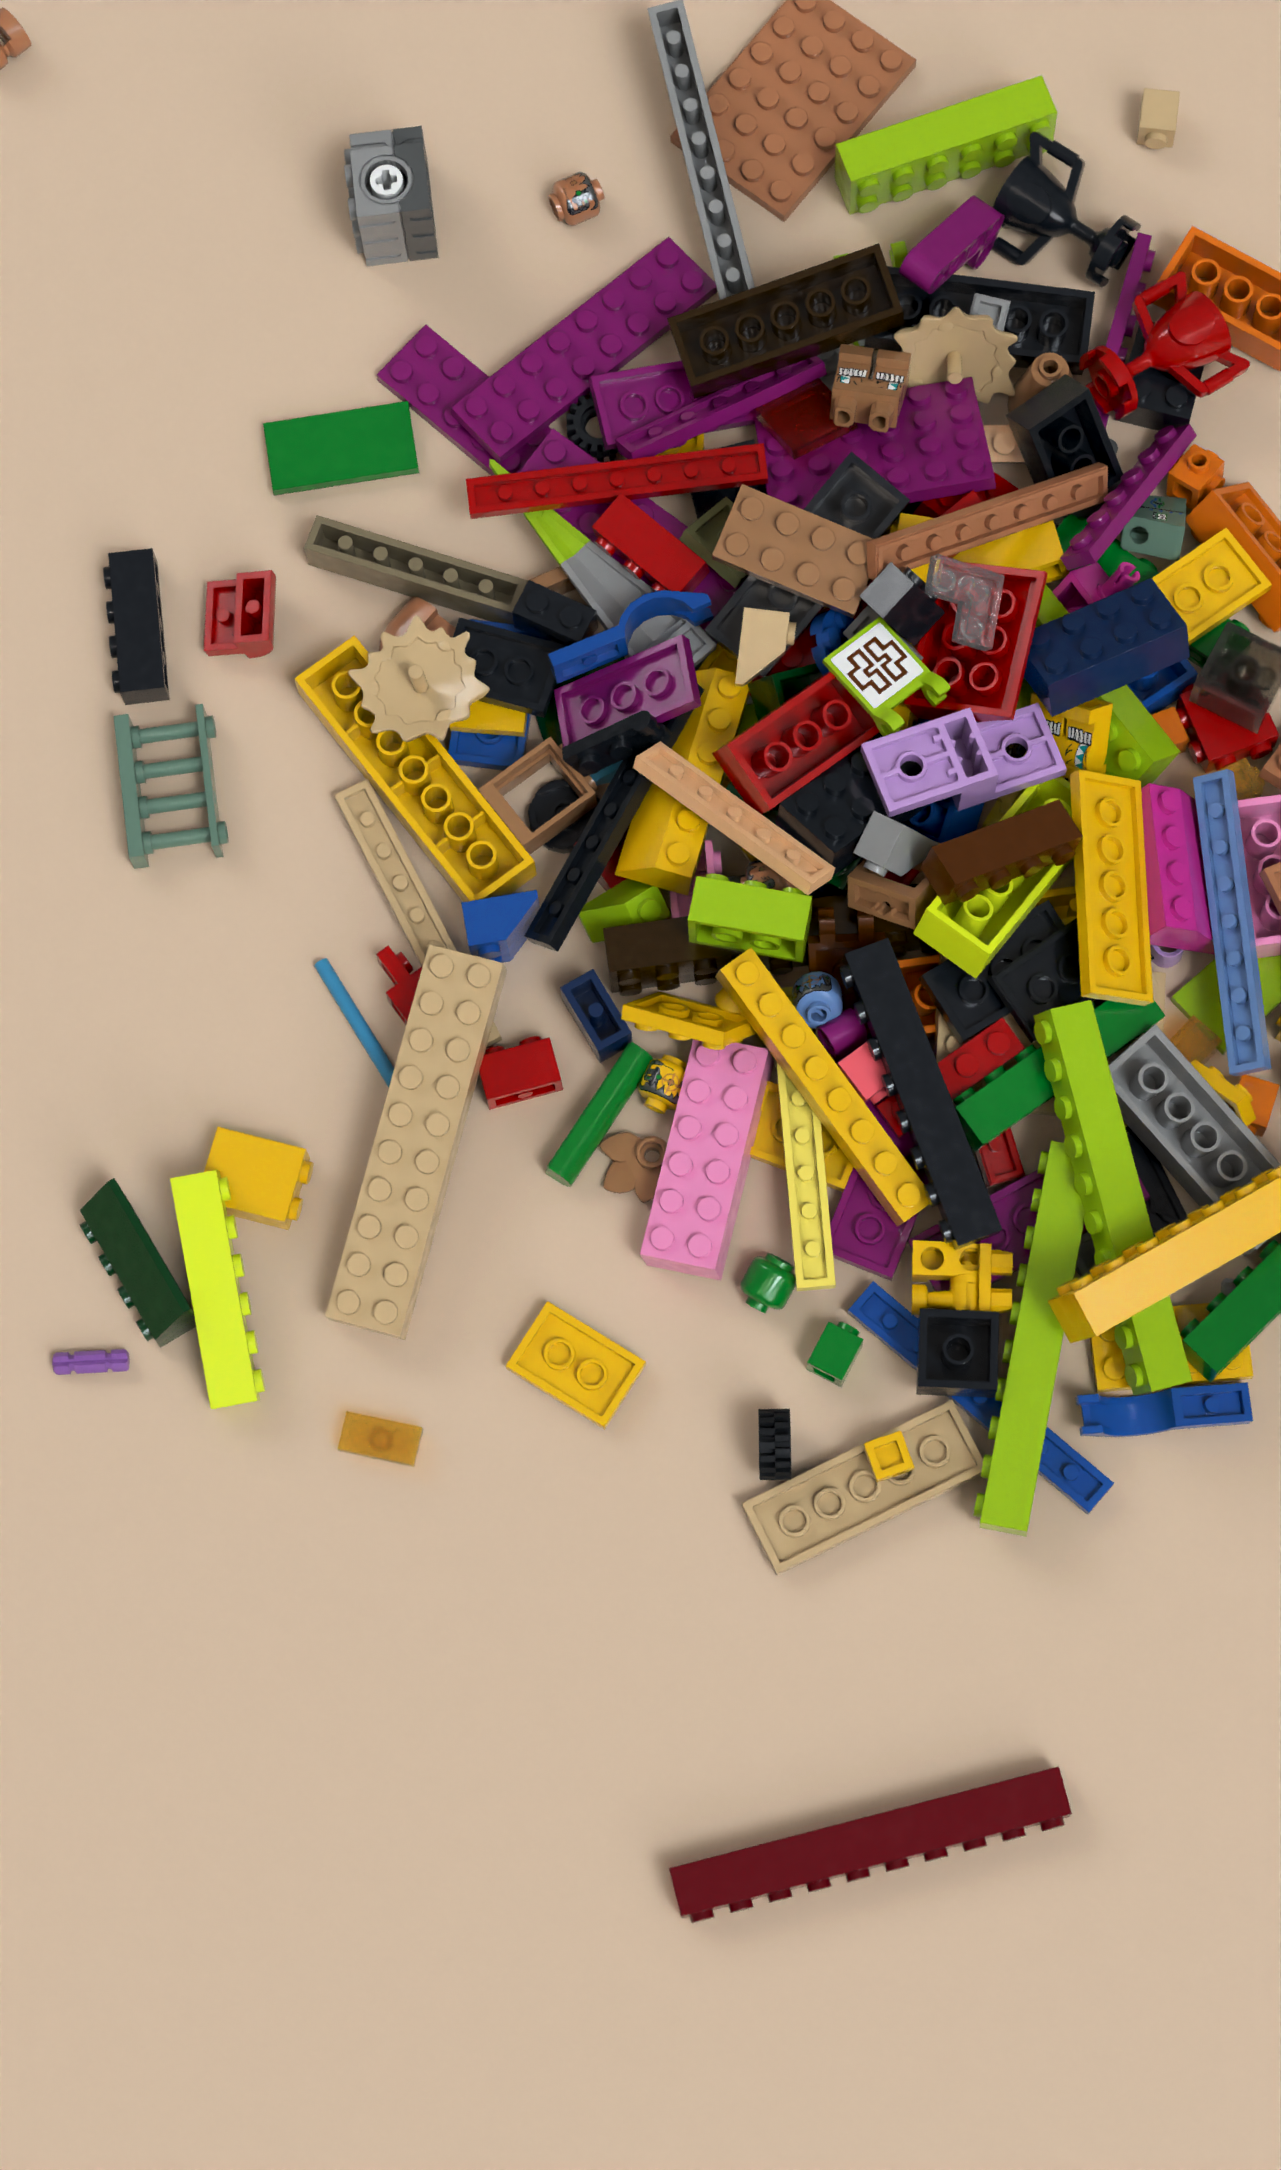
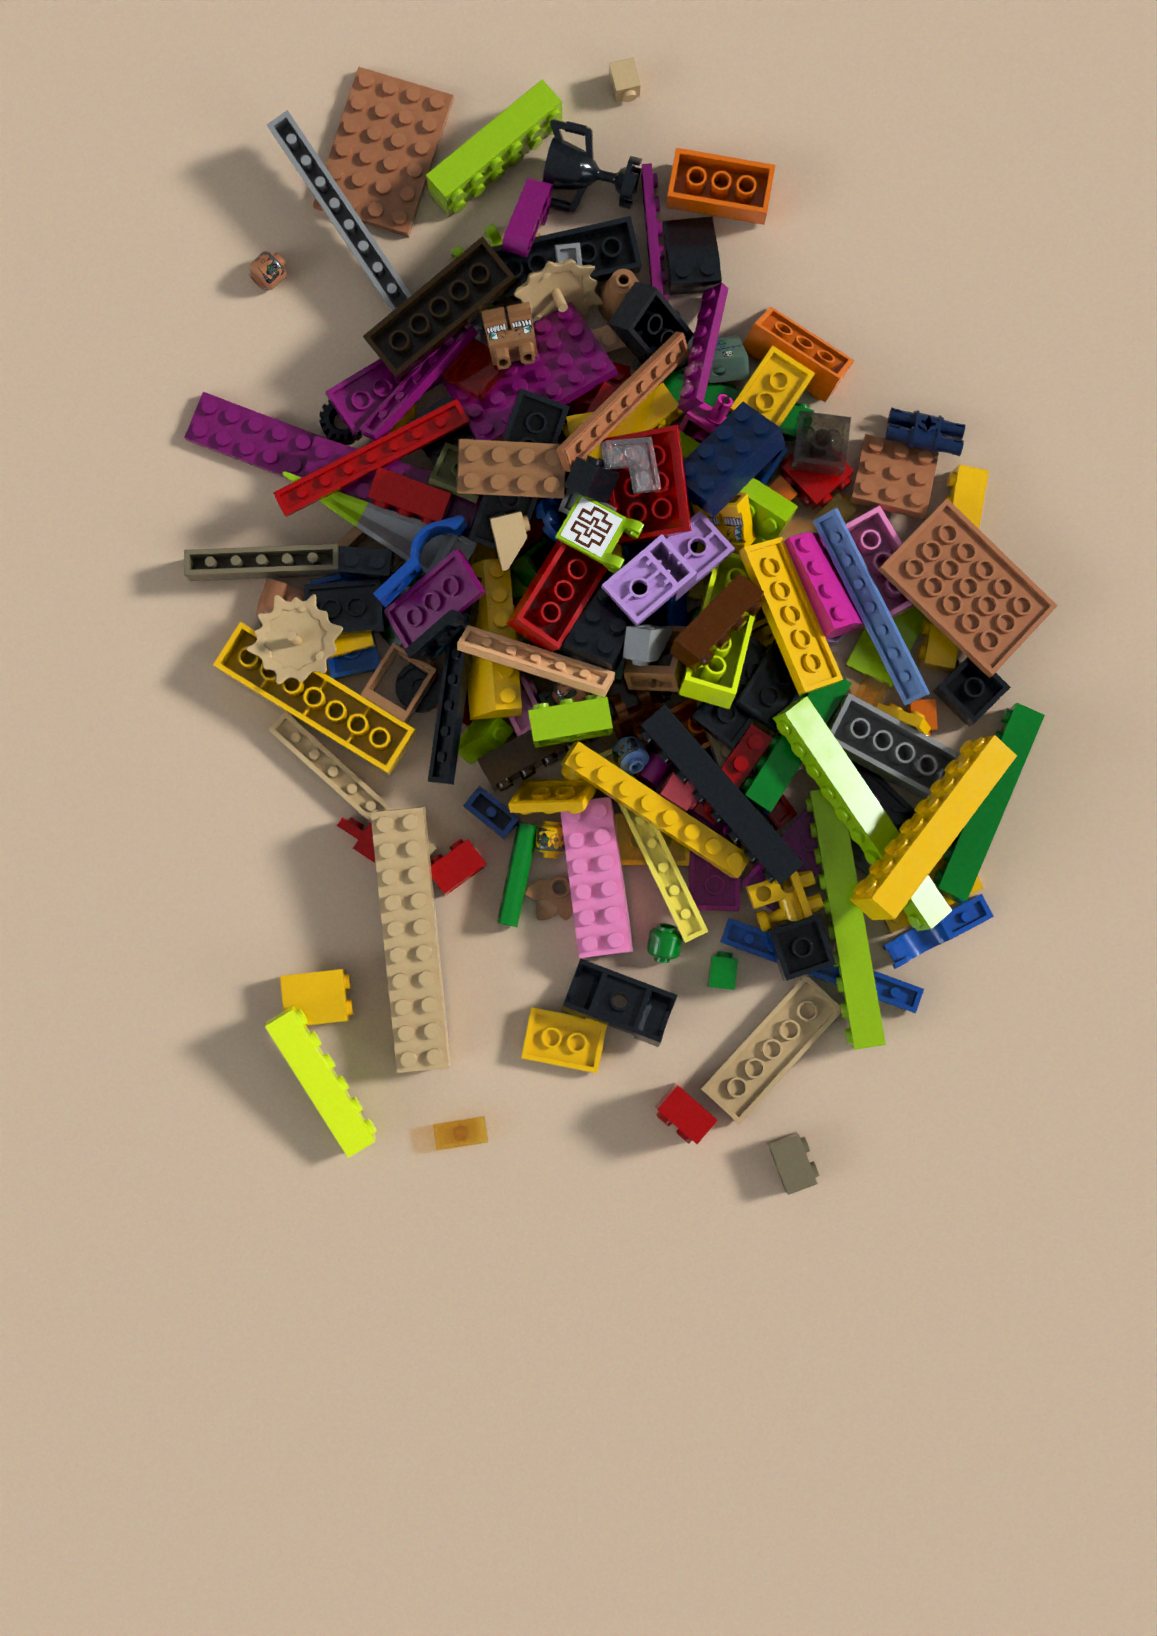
camera: 25 degrees left, 10 degrees up
(90, 1361) = (259, 1152): medium lavender axle -> none
(138, 626) = (96, 664): black brick -> none
(138, 1265) = (264, 1081): dark green slope -> none
(140, 807) = (145, 784): sand green fence -> none
(241, 615) = (160, 632): red brick -> none
(341, 448) = (180, 495): green tile -> none
(355, 1019) = (340, 871): dark azure bar -> none
(390, 196) = (146, 313): piece -> none
(499, 923) = (408, 779): blue slope -> none
(588, 342) = (312, 371): magenta plate -> none
(701, 1367) = (593, 995): none -> black piece
(706, 1525) = (686, 1114): none -> red brick
(774, 1444) = (708, 1045): black tyre -> none
(833, 1657) = (792, 1163): none -> dark tan brick
(870, 1842) = (857, 1269): dark red brick -> none
(888, 1456) = (781, 1027): yellow plate -> none
(1180, 340) = (698, 228): red piece -> none
(1195, 475) = (738, 316): orange brick -> none

